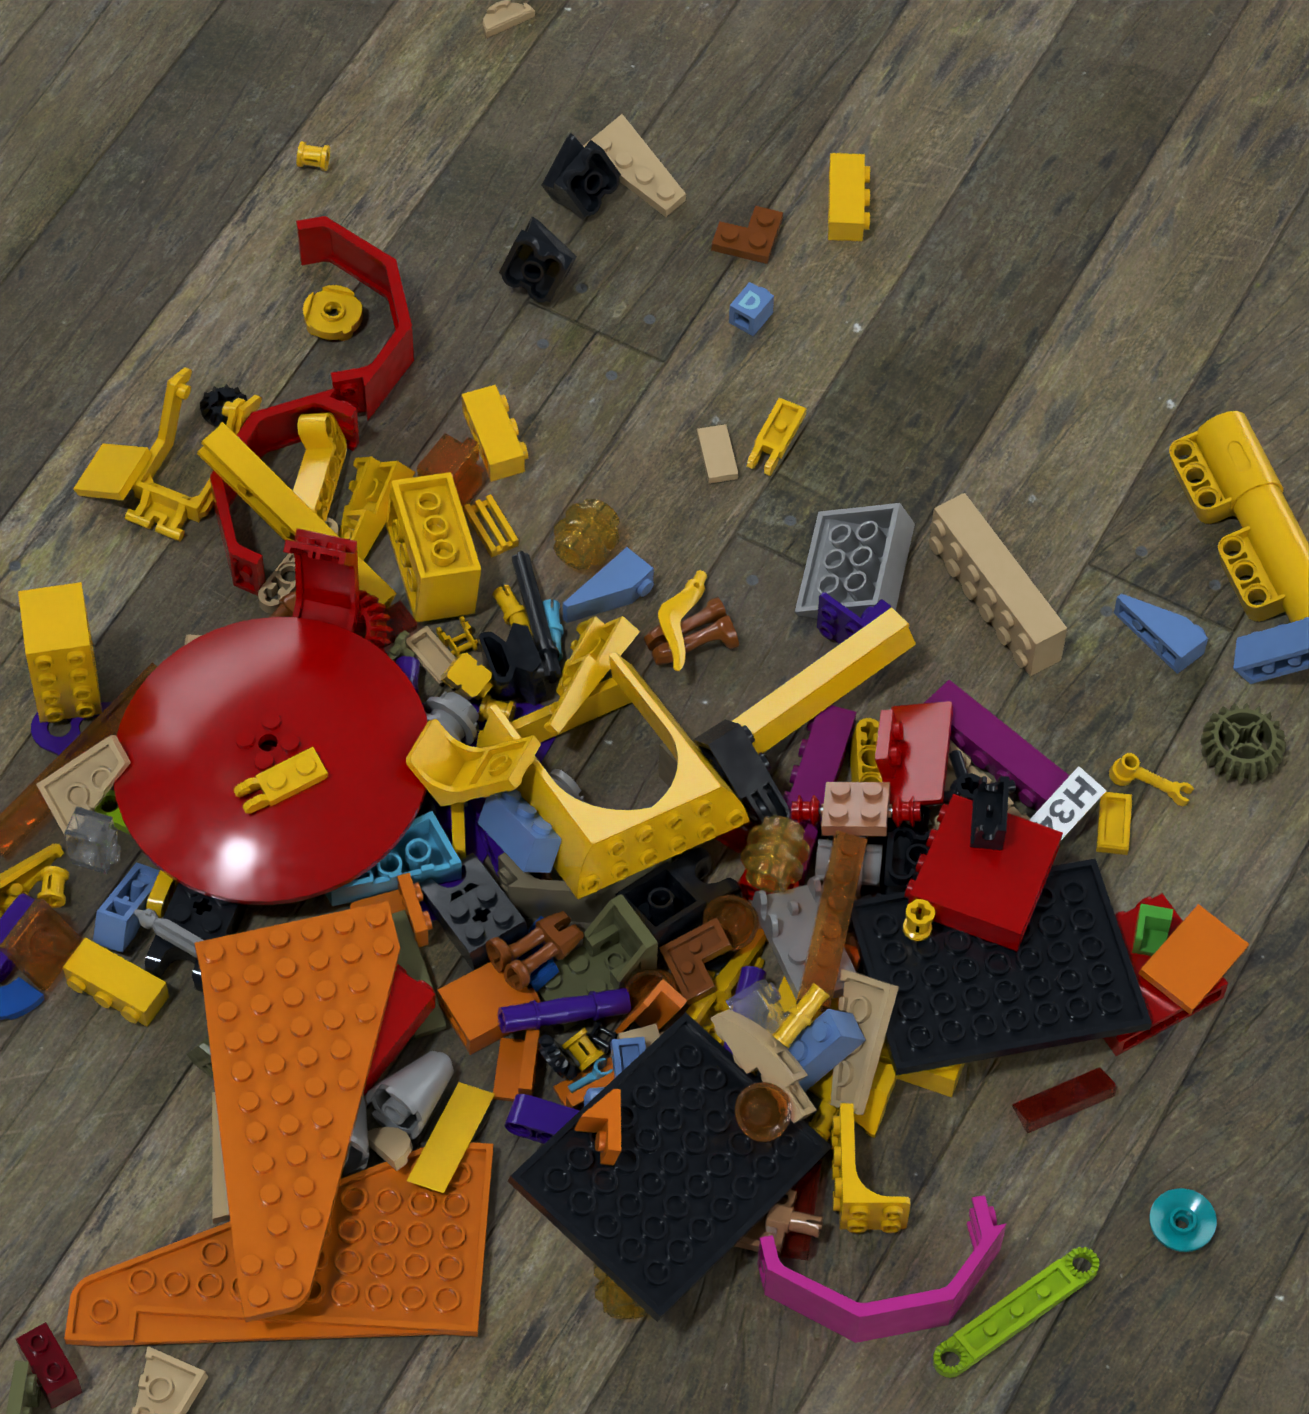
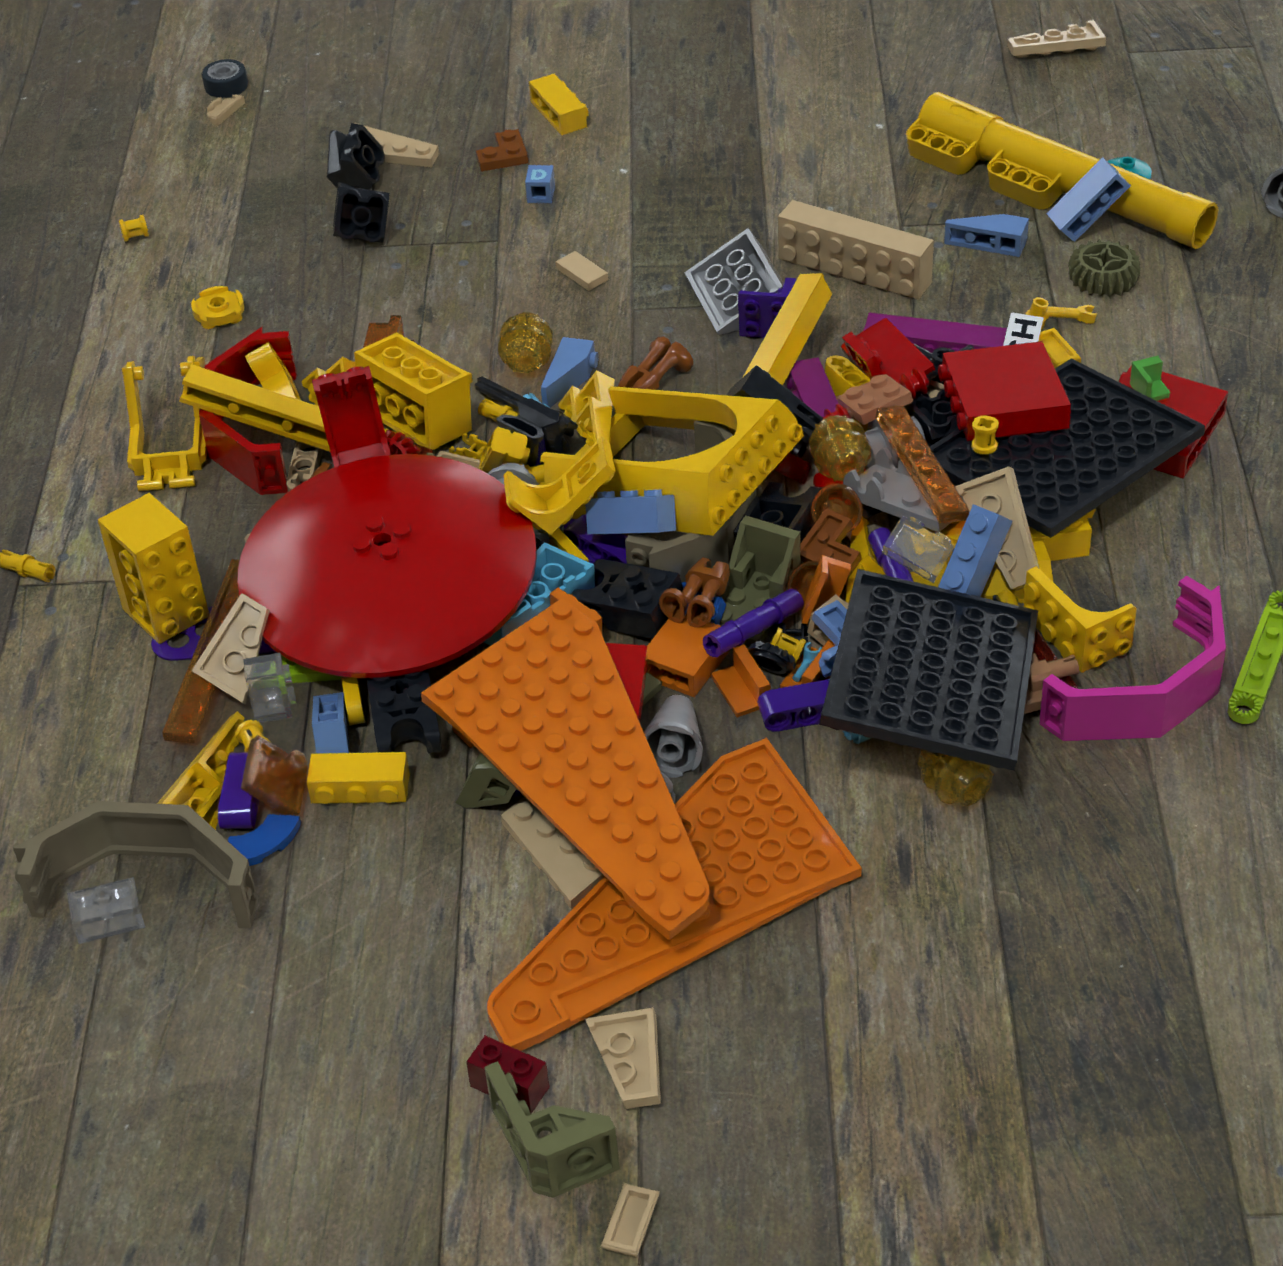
camera: 25 degrees left, 15 degrees down
(112, 471) = (108, 461): yellow tile -> none
(168, 930) = (391, 711): light grey wheel -> none
(210, 406) = (169, 398): black gear -> none
(282, 780) = (415, 554): yellow hinge -> none
(327, 241) = (236, 265): red panel -> none
(391, 1145) = (688, 776): tan tile -> none
(450, 1137) = (729, 750): yellow sticker -> none
(495, 432) = (417, 323): yellow brick -> none
(604, 1120) = (871, 649): orange slope -> none
(674, 610) = (631, 356): yellow piece -> none
(759, 1050) = (936, 562): tan slope -> none
(763, 1111) = (975, 596): clear orange helmet -> none
(777, 434) = (617, 241): yellow hinge -> none
(801, 1015) = (953, 521): yellow pin -> none
(989, 814) = (985, 345): black hinge -> none
(1064, 1099) = (1174, 516): clear red slope -> none
(1194, 959) = (1194, 384): orange tile -> none

